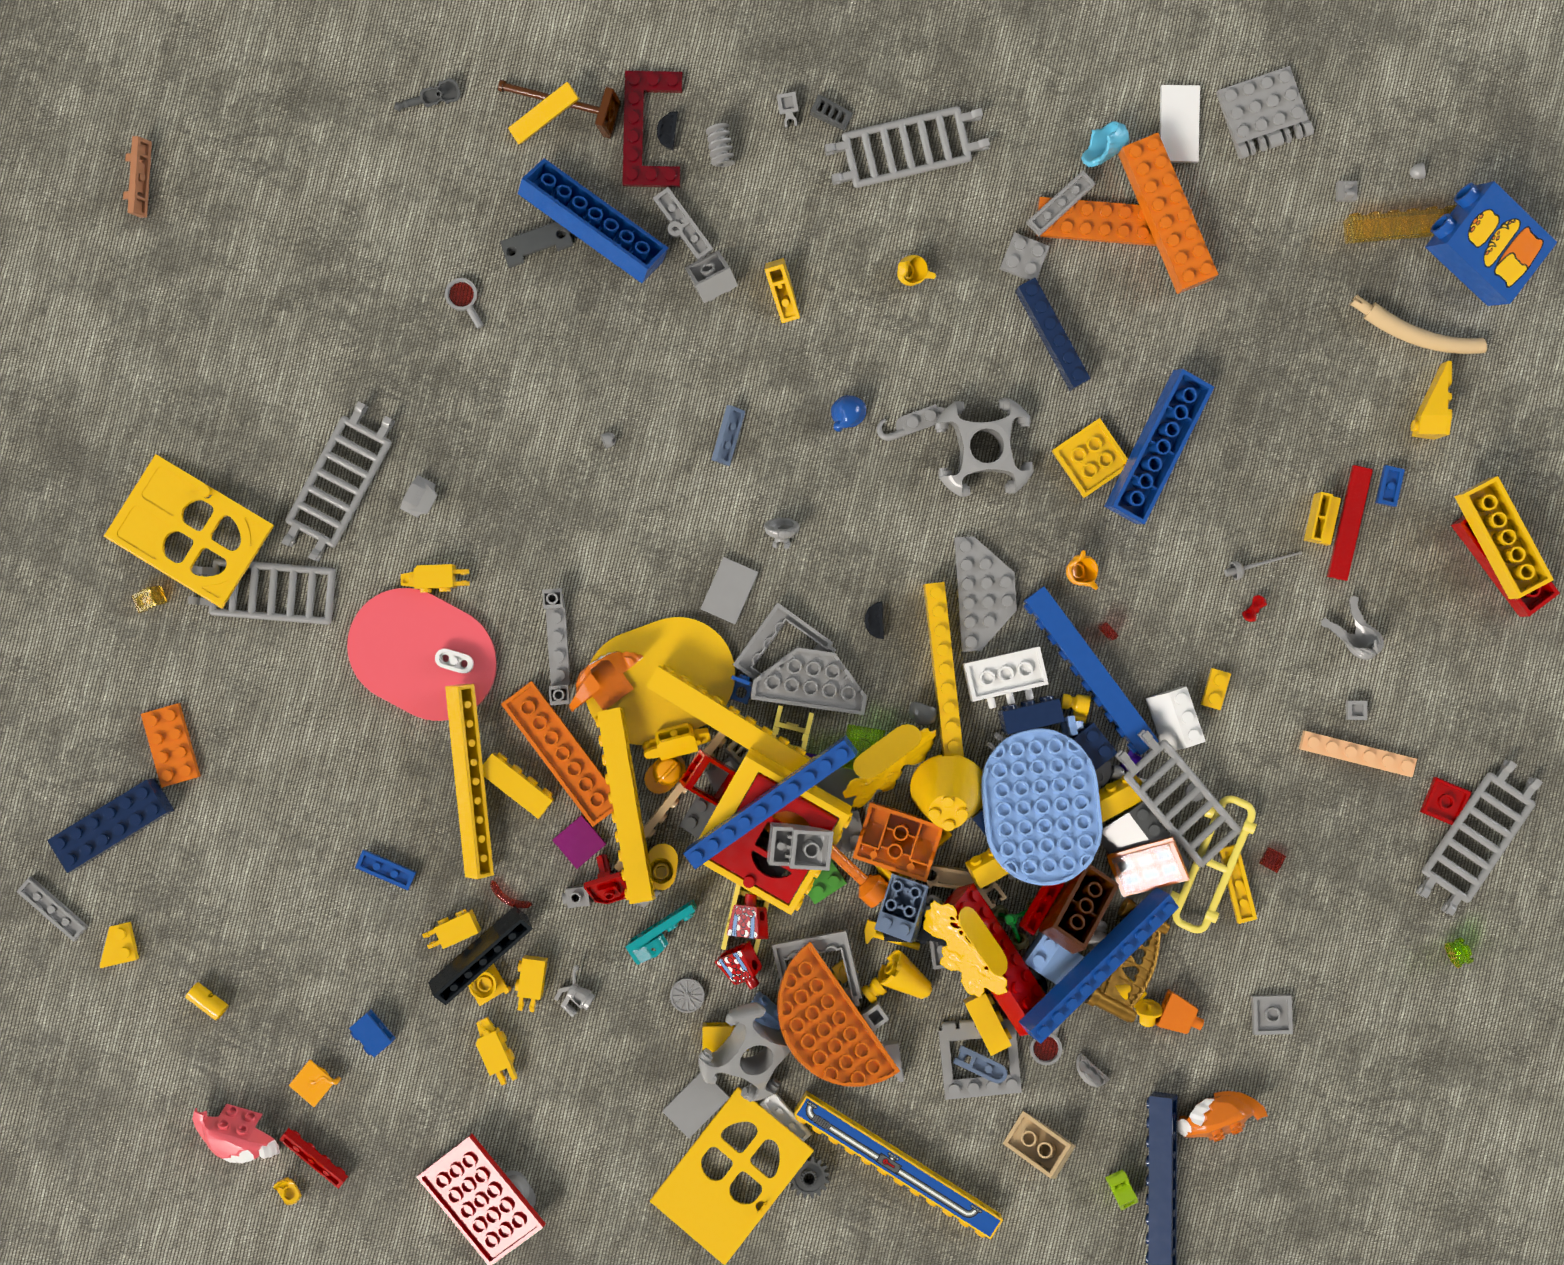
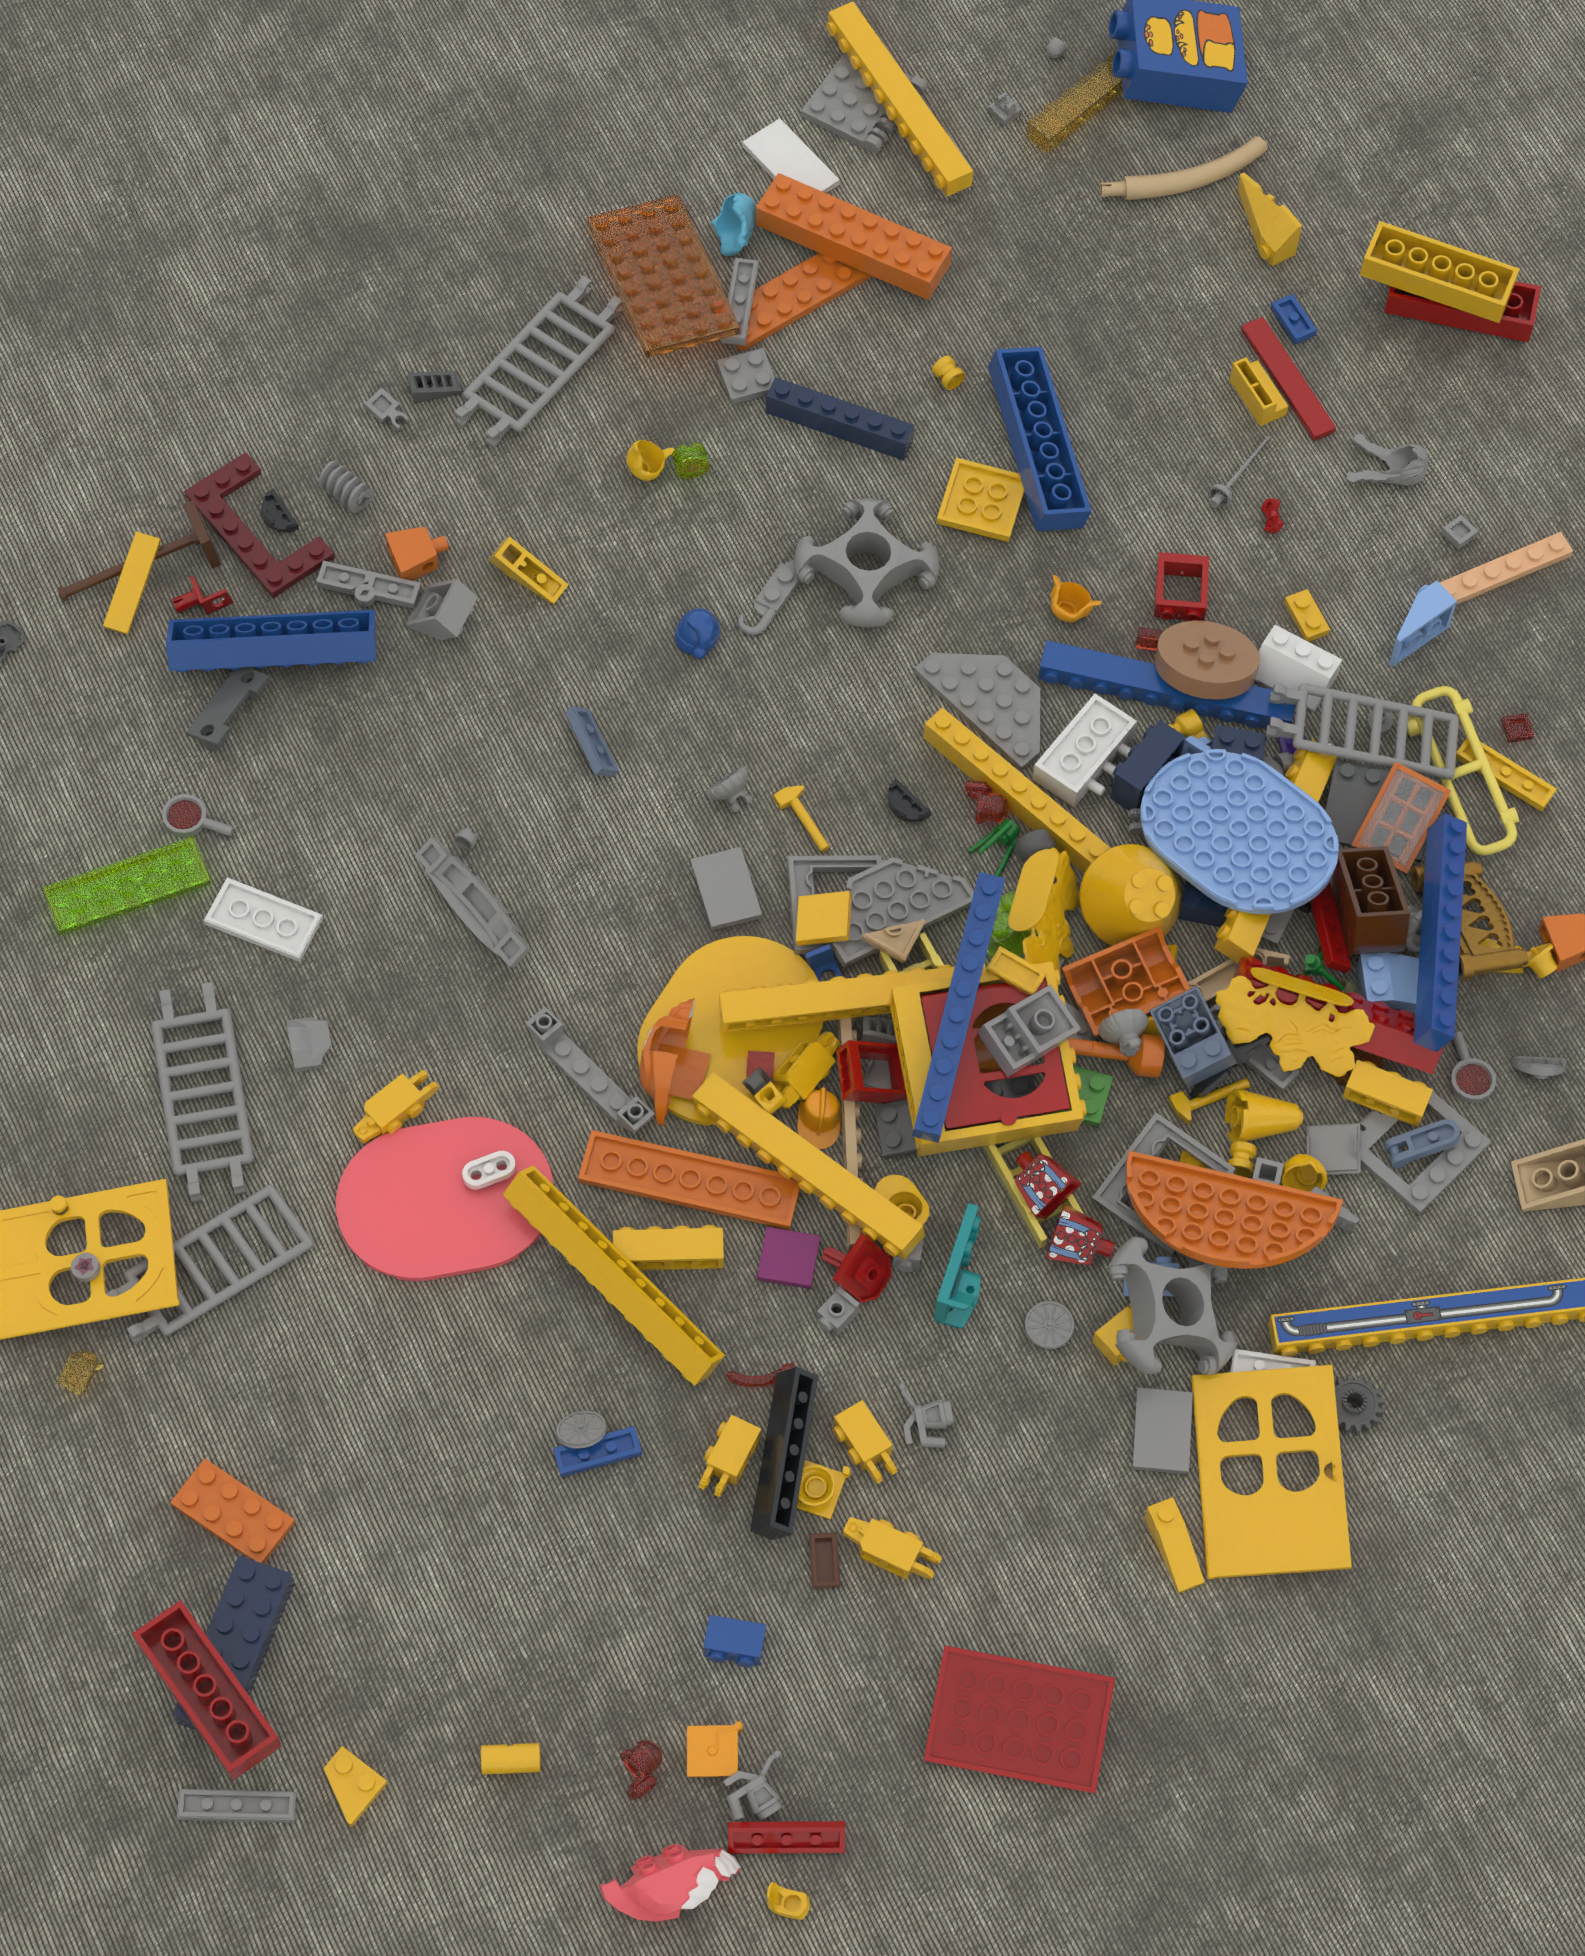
camera: 45 degrees left, 25 degrees down
(63, 849) = (207, 1690): none -> red brick
(189, 543) = (85, 1267): none -> light grey tile
(272, 1059) = (642, 1762): none -> clear red piece
(318, 1120) = (760, 1794): none -> light grey piece
(386, 851) = (581, 1429): none -> light grey wheel
(393, 315) = (126, 885): none -> clear neon green plate
(455, 398) = (263, 919): none -> white tile
(456, 1027) = (824, 1560): none -> reddish brown tile
(576, 153) = (196, 597): none -> red bracket
(578, 488) = (473, 902): none -> light grey piece
(639, 748) = (764, 1090): none -> leg
(646, 1171) = (1174, 1544): none -> yellow slope
(655, 718) = (762, 1059): none -> clear red tile
(726, 224) = (414, 552): none -> orange torso
(761, 662) = (823, 918): none -> yellow tile
(792, 707) = (895, 940): none -> tan tile
(812, 561) = (790, 797): none -> yellow piece
(822, 806) = (1016, 971): none -> yellow tile
(867, 874) = (1124, 1028): none -> light grey hair
(899, 1028) = (1303, 1173): none -> yellow hair
(915, 687) = (1004, 835): none -> green plant
(920, 663) = (989, 805): none -> clear red piece
(930, 1025) = (1336, 1147): none -> light grey piece
(939, 292) = (691, 460): none -> clear neon green wheel
(1029, 147) = (663, 276): none -> clear orange plate
(1125, 676) = (1206, 659): none -> medium nougat brick
(1146, 354) = (948, 372): none -> yellow wheel
(1170, 598) = (1187, 566): none -> red window
(1278, 752) = (1427, 618): none -> light blue slope
(1284, 133) = (899, 99): none -> yellow brick

